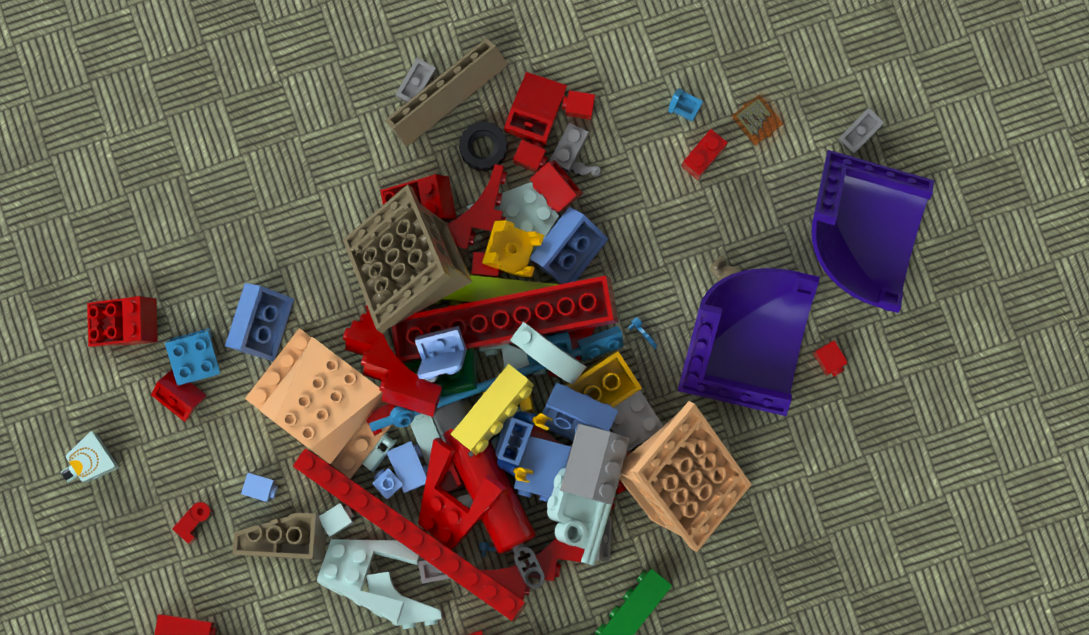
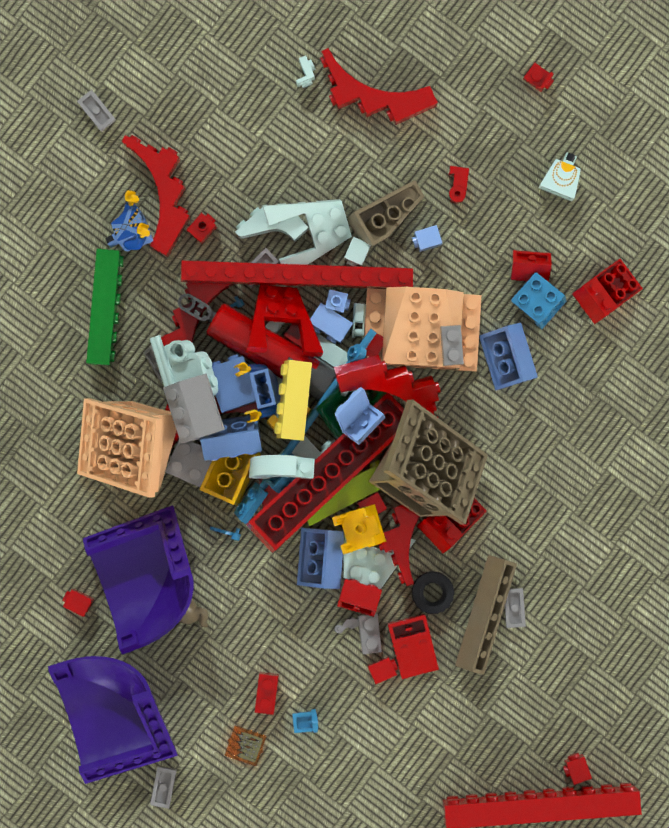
camera: 145 degrees right, 5 degrees up
(43, 574) = (539, 77): none -> red bracket
(304, 362) = (451, 345): none -> light grey plate
(530, 156) = (393, 608): red brick -> none

